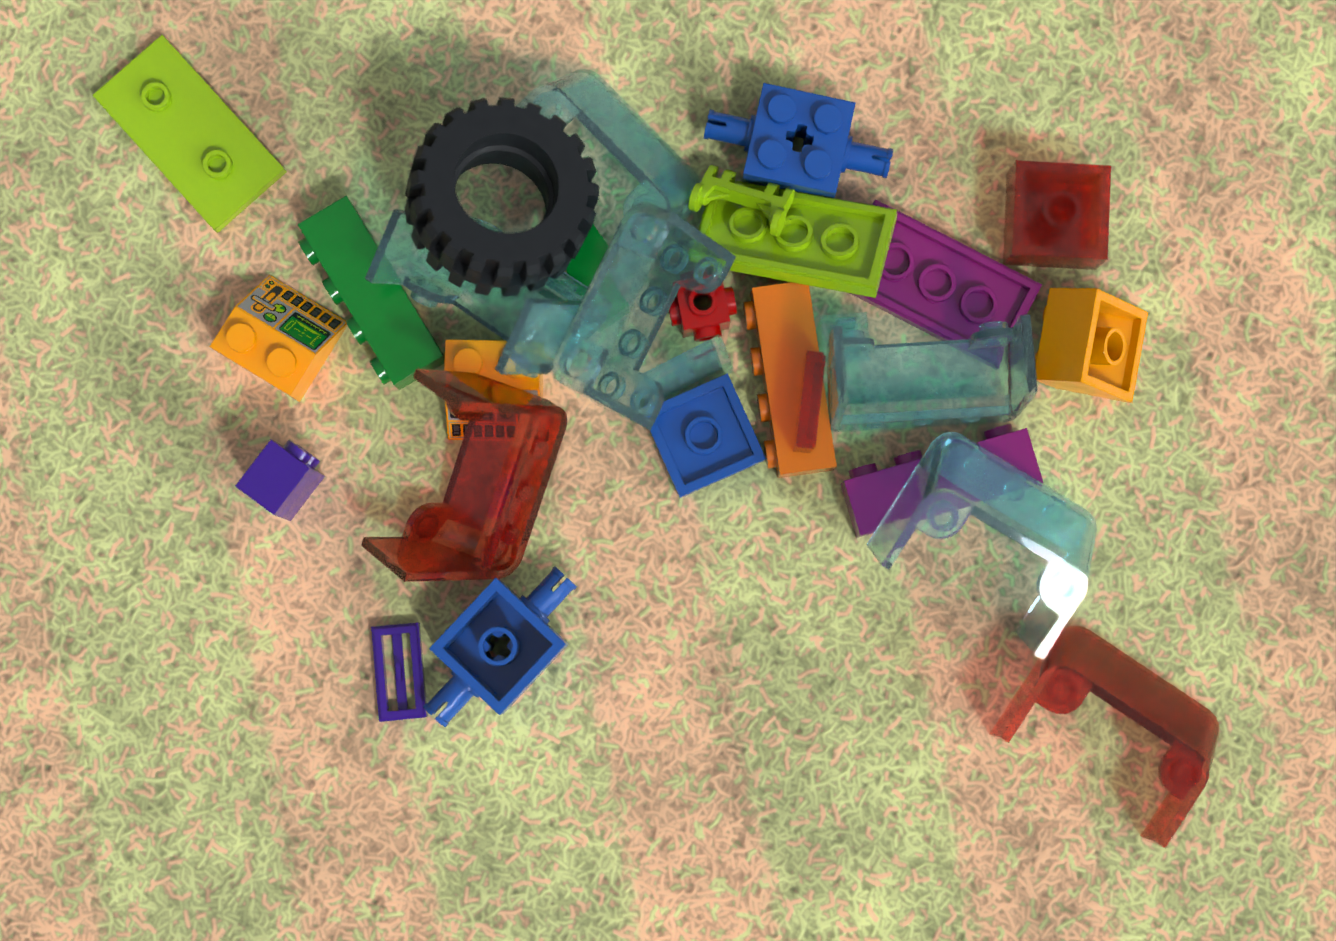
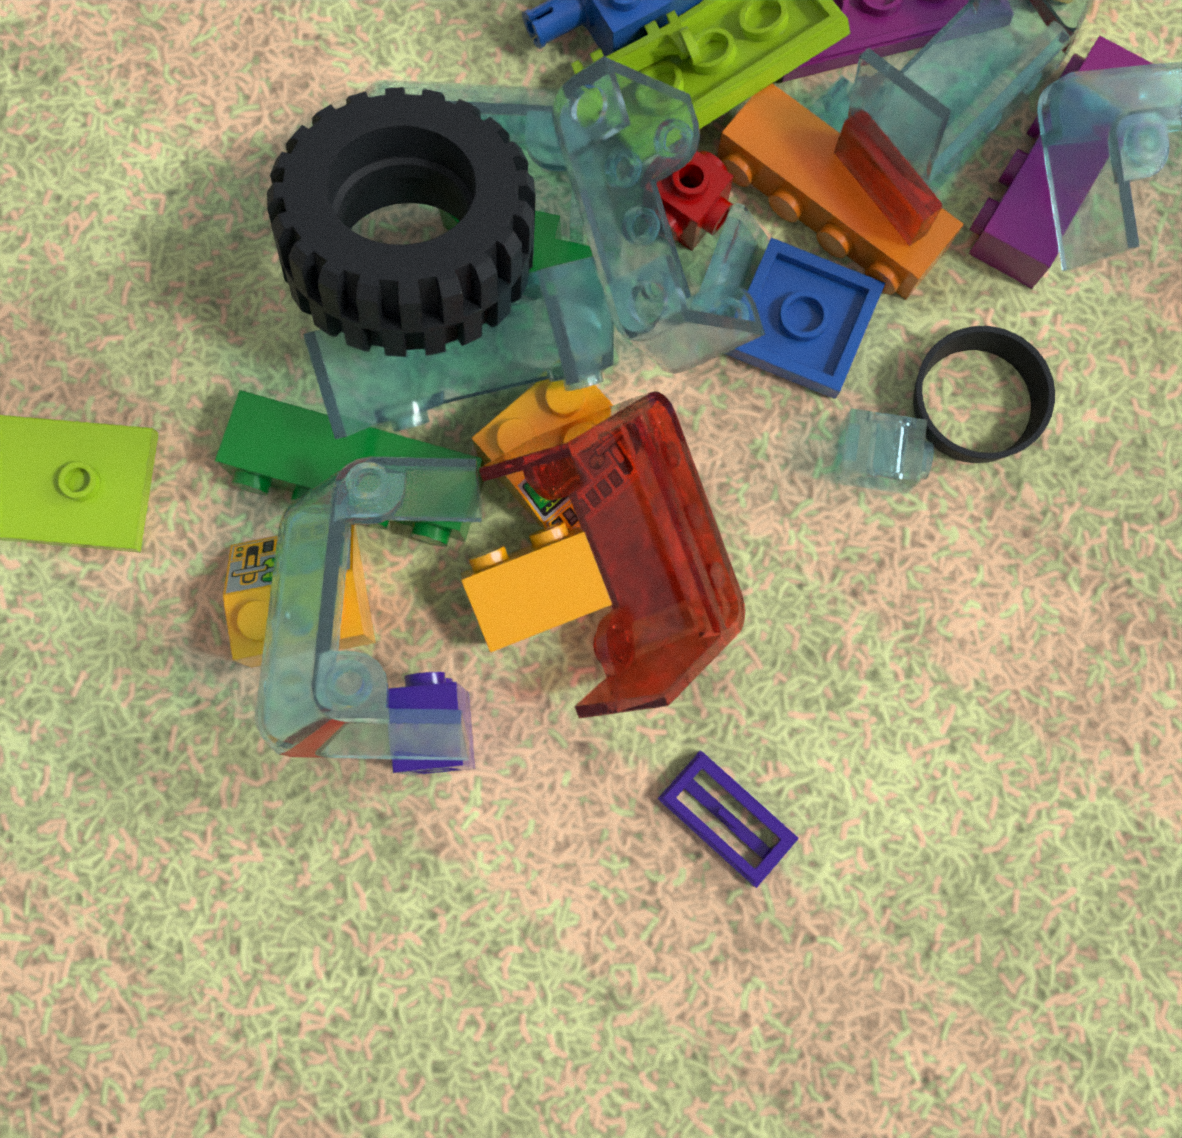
camera: 40 degrees left, 5 degrees down
(224, 405) = (335, 700): none -> clear light blue windscreen
(407, 451) = (534, 586): none -> light orange brick
(467, 646) = (837, 660): blue brick -> none
(671, 552) = (882, 451): none -> clear light blue brick
(791, 538) = (1021, 356): none -> black tyre

